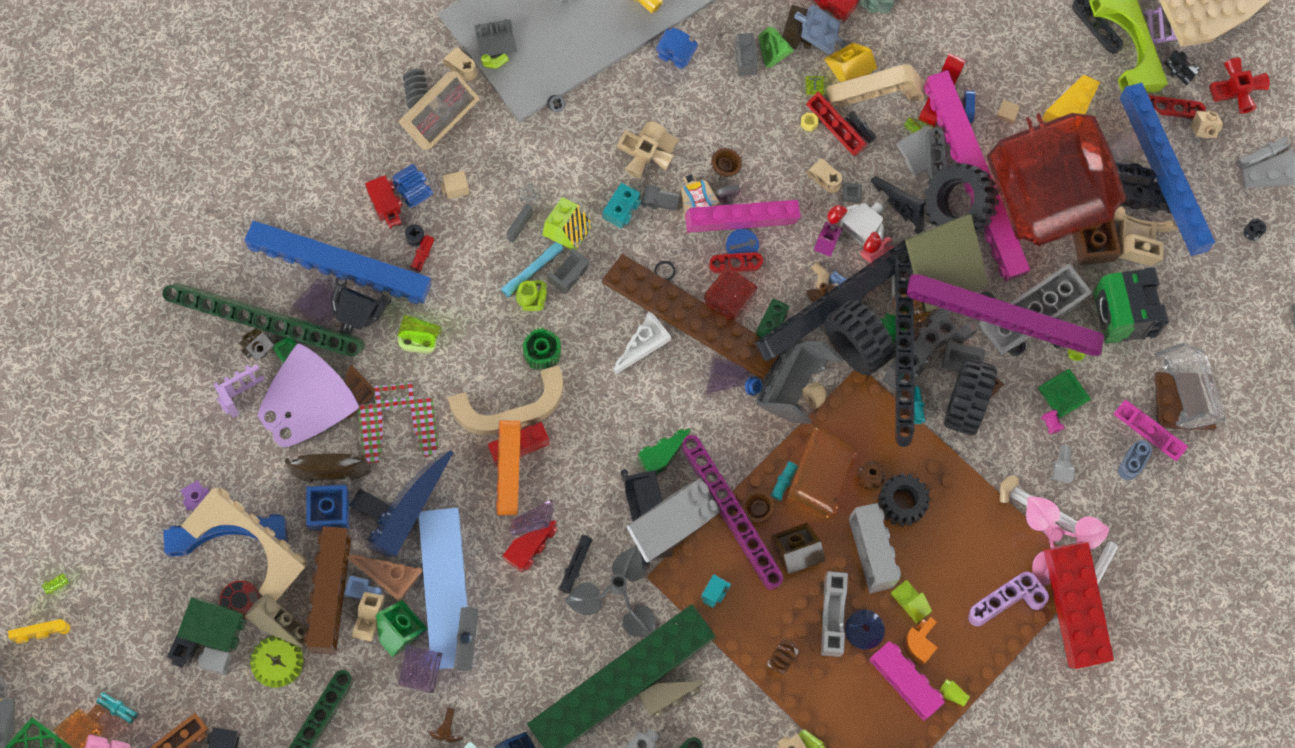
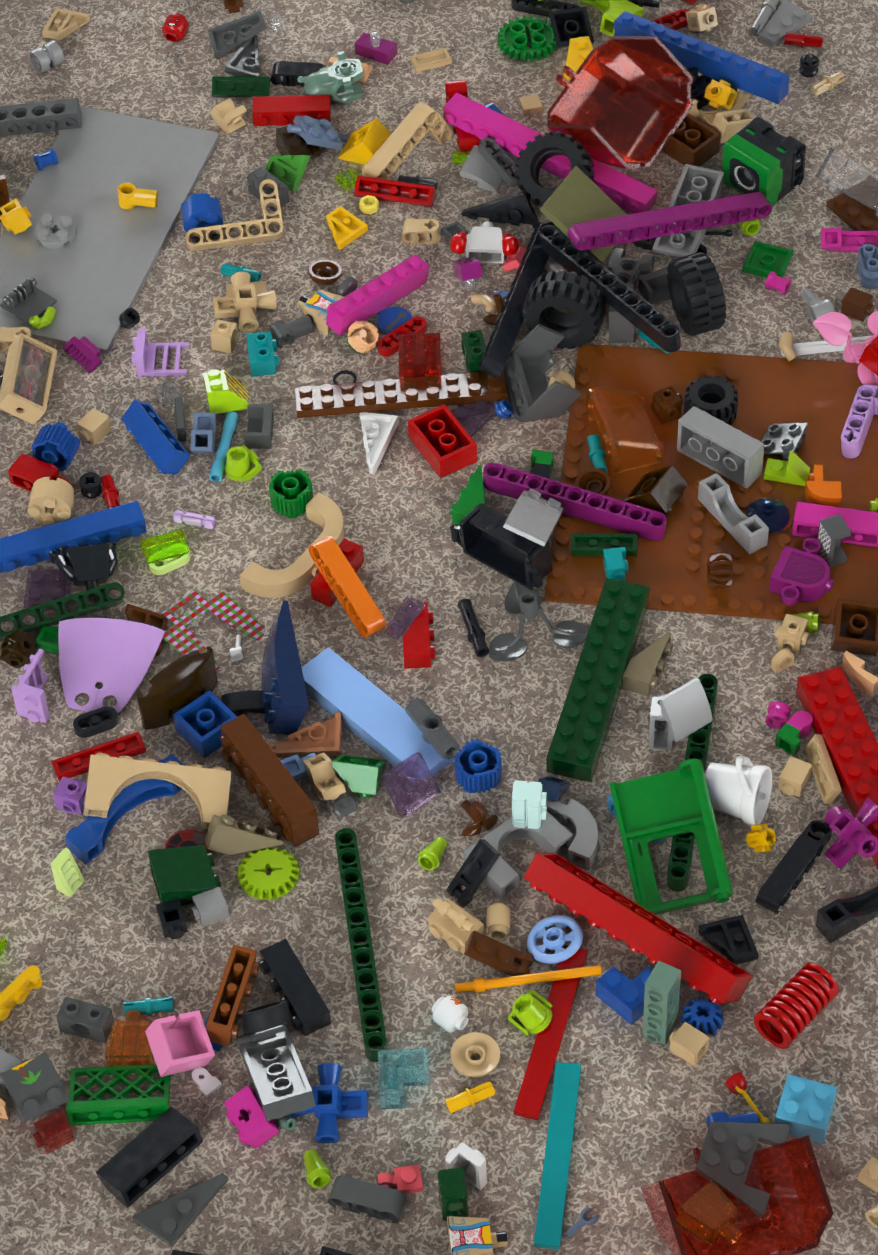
camera: 30 degrees left, 20 degrees down
(66, 688) = (85, 1019): none -> dark grey brick
(142, 561) = (66, 873): none -> yellowish green slope
(243, 474) = (78, 763): none -> red tile
(262, 445) = (95, 721): none -> black plate
(367, 648) = (344, 806): none -> dark grey piece
(372, 233) = (51, 501): none -> tan brick
(393, 735) = (432, 854): none -> lime cone
(399, 458) = (236, 653): none -> white hand
(462, 318) = (194, 519): none -> lavender axle
(484, 699) = (478, 767): none -> blue brick
(487, 228) = (155, 437): none -> blue brick
(505, 111) = (87, 352): none -> magenta piece
(523, 252) = (203, 433): none -> sand blue brick
(540, 145) = (145, 356): none -> lavender plate
(607, 170) = (224, 336): none -> tan brick
(667, 118) = (229, 270): none -> teal axle
(683, 384) = (442, 441): none -> red brick
(697, 81) = (243, 228): none -> tan beam
(702, 245) = (362, 336): none -> light nougat piece
(723, 565) = (593, 544): none -> dark green plate
(736, 462) = (542, 463): none -> leg
(774, 130) = (345, 227): none -> yellow wing
(840, 704) = (801, 574): none -> magenta piece
(886, 696) = (830, 535): none -> dark grey panel
(931, 571) = (784, 438): none -> dark grey hinge
(967, 13) = (431, 59): none -> tan tile
(1071, 55) = (514, 39): none -> green gear
(1094, 62) = (569, 25): none -> black slope
(1095, 488) = (857, 304): none -> reddish brown brick
(1154, 213) = (720, 94): none -> yellow brick
(1255, 257) = (828, 83): none -> tan axle
(1271, 200) = (803, 40): none -> red axle

